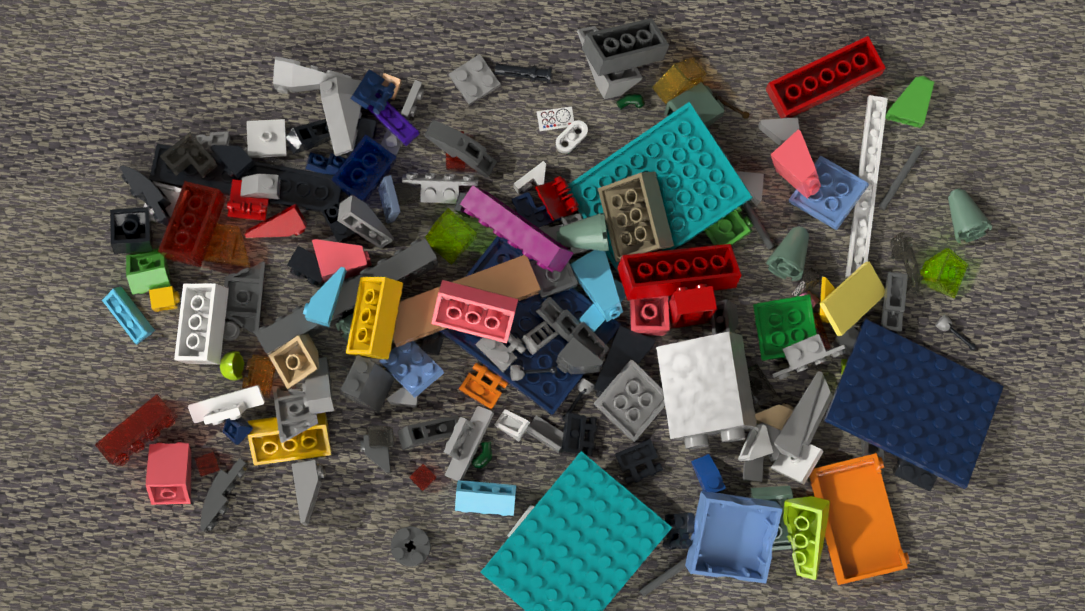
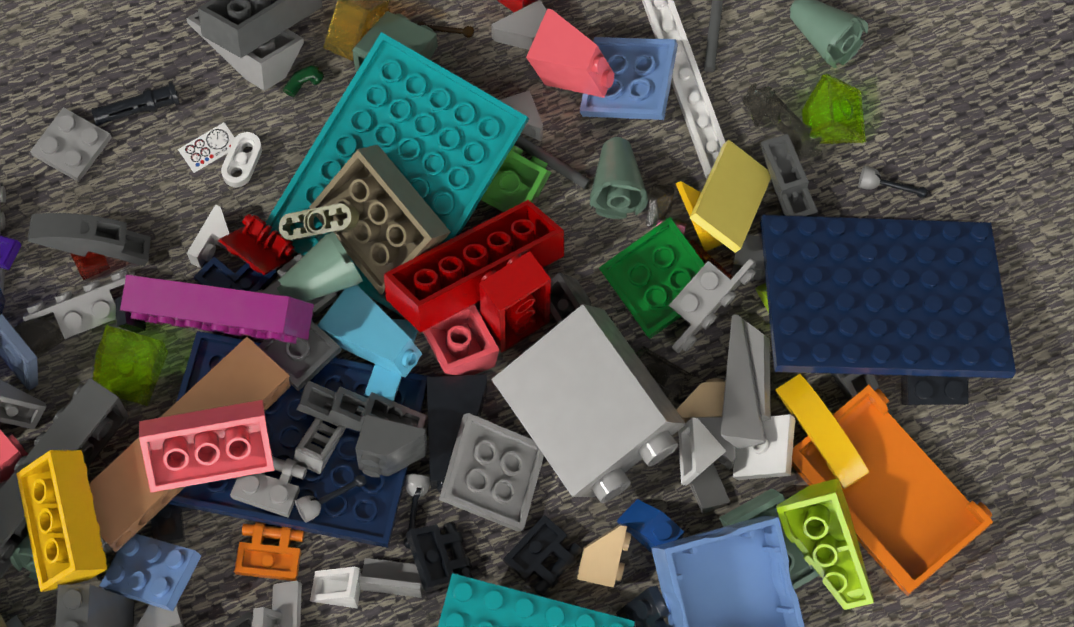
camera: 20 degrees left, 10 degrees down
(592, 202) = (307, 218): none -> olive beam
(671, 480) = (602, 556): none -> tan slope
(836, 466) = (823, 430): none -> yellow slope

